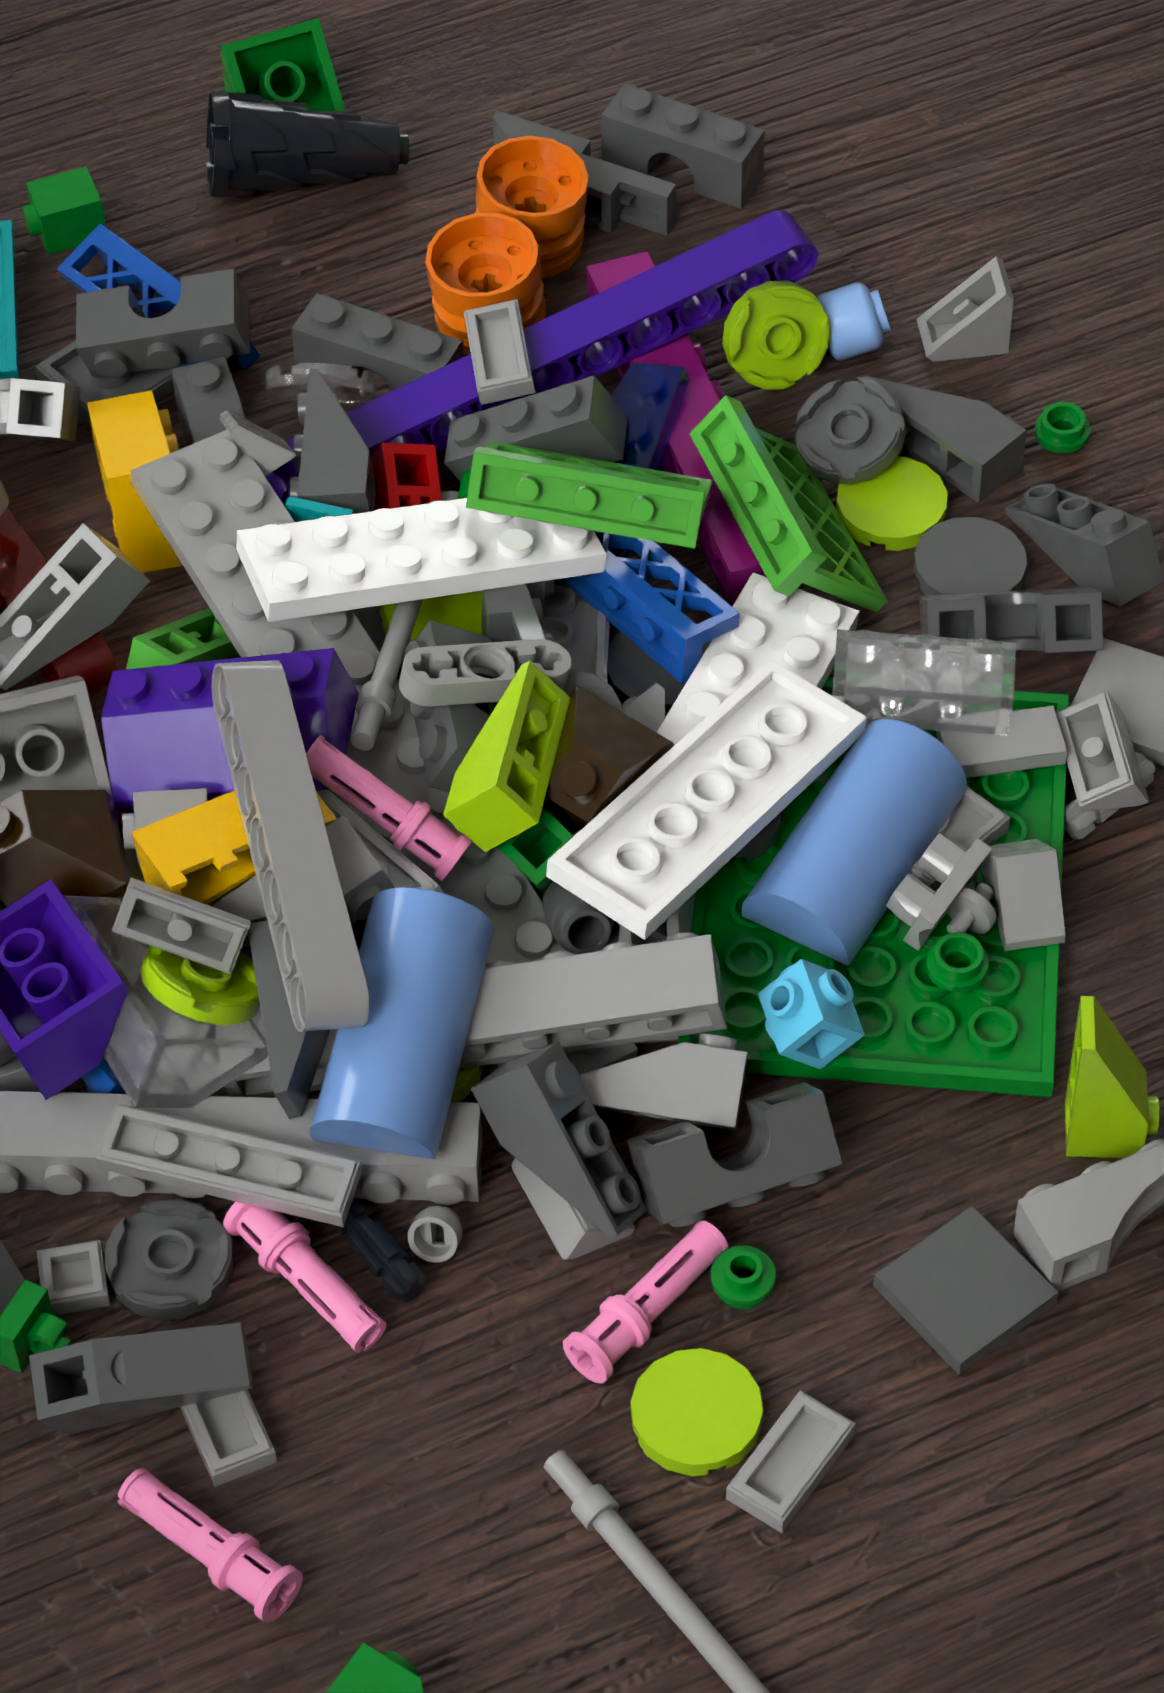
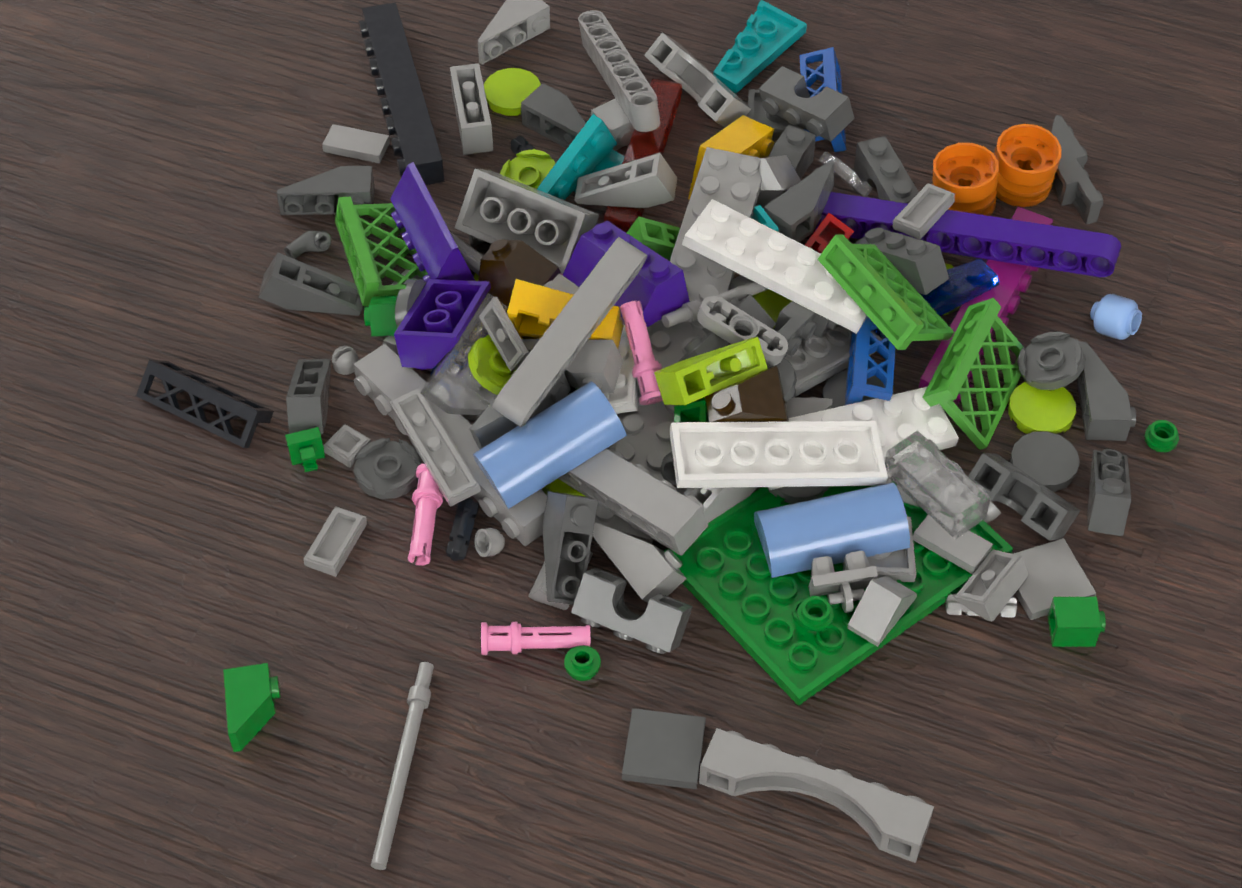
camera: 45 degrees right, 0 degrees up
(63, 209) = (834, 32): green brick -> none
(138, 1375) = (312, 495): dark grey slope -> none
(230, 1558) = (272, 607): bright pink pin -> none
(284, 66) = (985, 42): green slope -> none
(285, 145) = (952, 69): black cone -> none
(696, 1411) = (501, 697): lime tile -> none
(718, 150) = (1144, 201): dark grey arch -> none
(776, 334) = (1067, 295): lime tile -> none
(790, 1461) = (513, 750): light grey tile -> none
(811, 1014) = (721, 579): medium azure brick -> none
(971, 318) = (1176, 356): light grey slope -> none
(1106, 1091) = (806, 713): lime slope -> none

